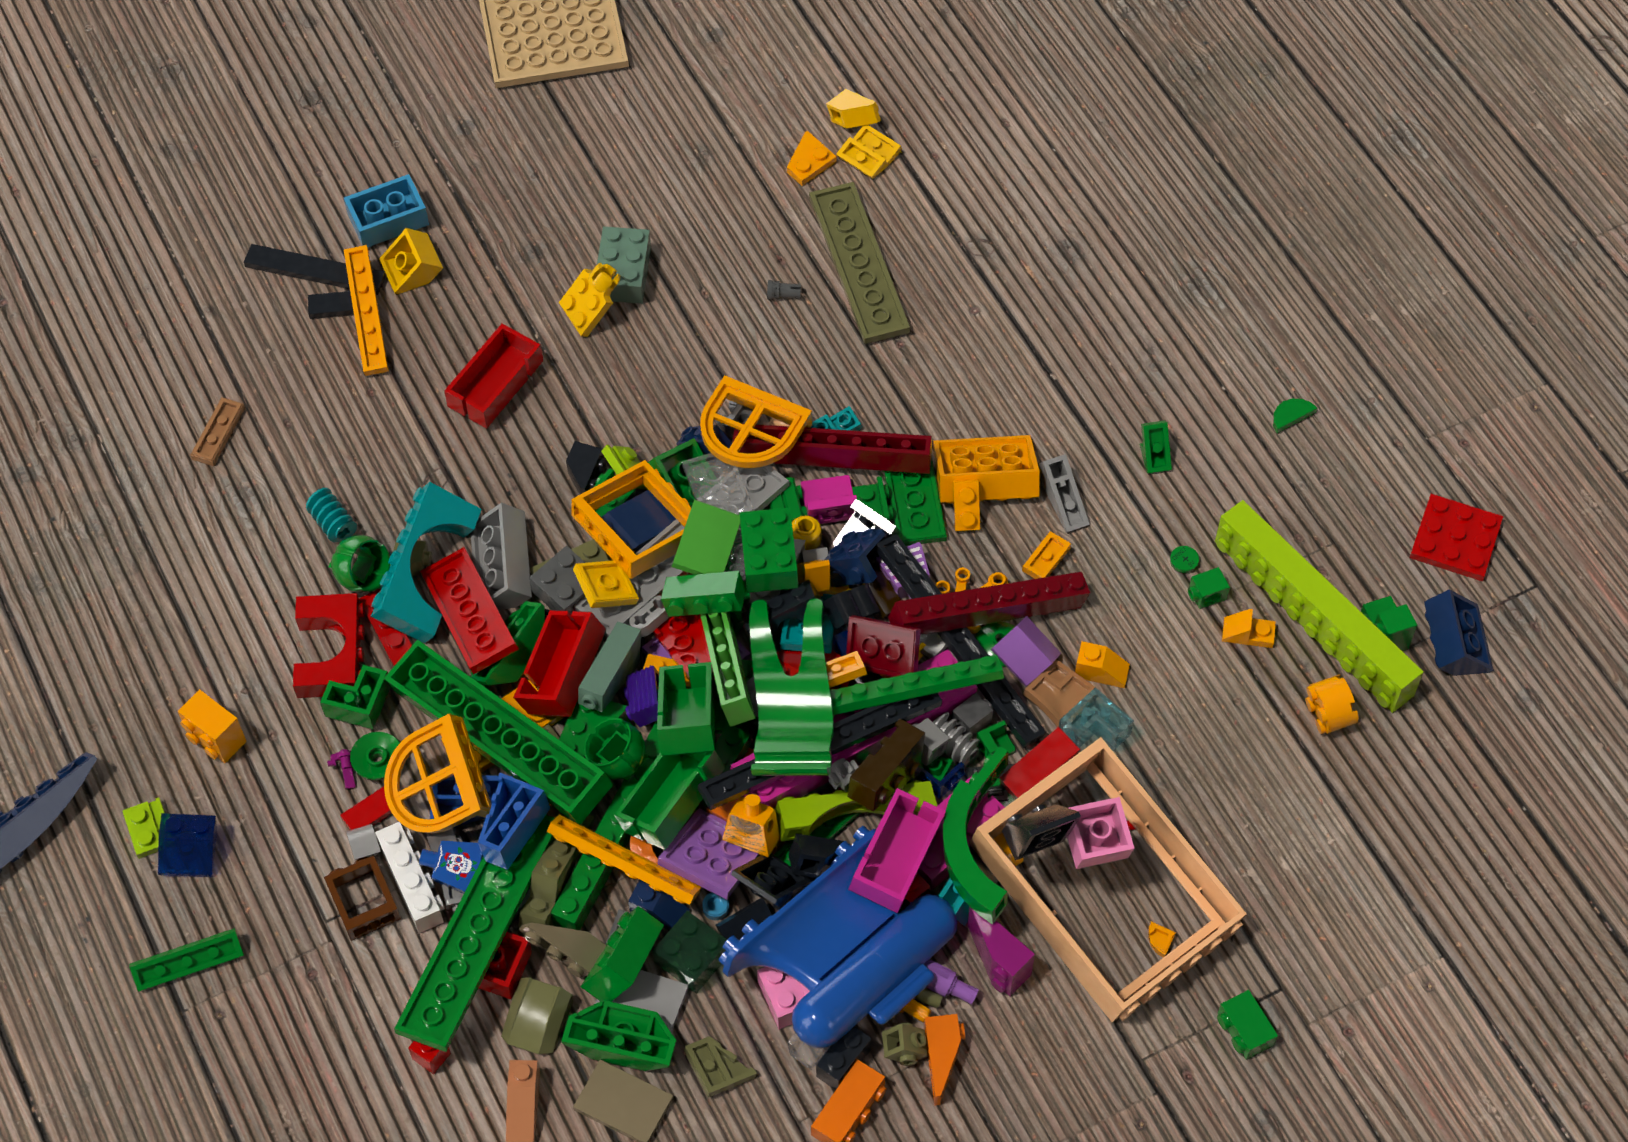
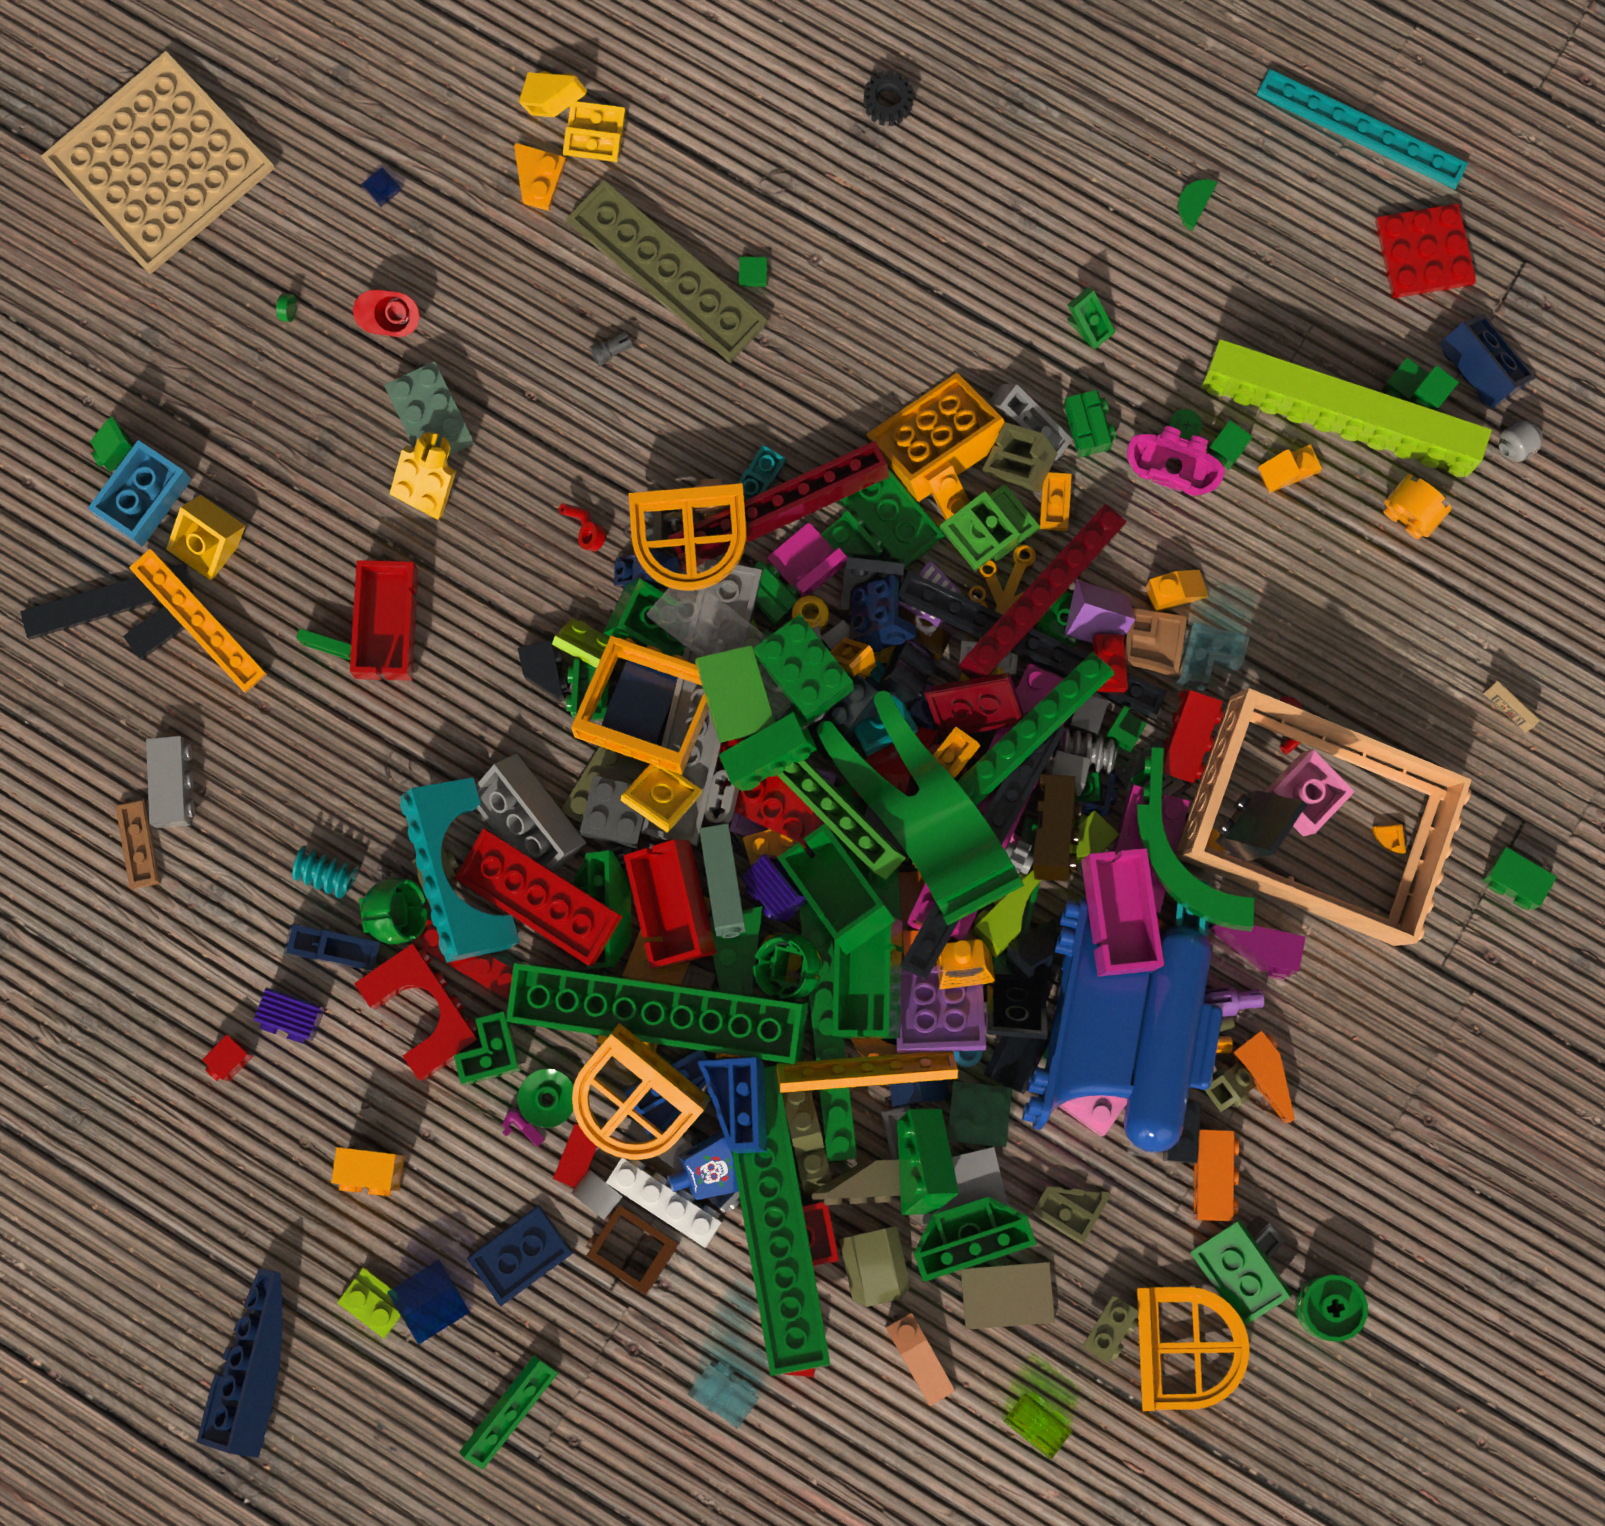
camera: 30 degrees left, 20 degrees up
(171, 600) = (226, 1059): none -> red brick
(236, 596) = (289, 1015): none -> dark purple brick
(268, 401) = (169, 782): none -> light grey brick
(277, 857) = (520, 1255): none -> dark blue tile
(298, 567) = (331, 947): none -> dark blue slope
(351, 1030) = (724, 1394): none -> clear light blue brick
(389, 167) = (111, 445): none -> green slope
(439, 367) = (324, 644): none -> green tile
(572, 151) = (286, 307): none -> green tile
(638, 185) = (386, 313): none -> piece
(684, 399) = (591, 534): none -> red plate
(693, 113) = (381, 187): none -> clear blue plate
(922, 294) = (752, 271): none -> green tile
(977, 541) = (989, 527): none -> bright green bracket
(1012, 686) = (1111, 650): none -> red plate
(1038, 509) = (1021, 457): none -> olive plate
(1102, 222) = (891, 83): none -> black tyre
(1107, 517) = (1088, 423): none -> green brick
(1141, 560) = (1199, 470): none -> dark pink piece
(1321, 893) = (1511, 706): none -> tan tile
(1450, 705) = (1520, 440): none -> light grey head
(1458, 431) = (1362, 129): none -> teal tile

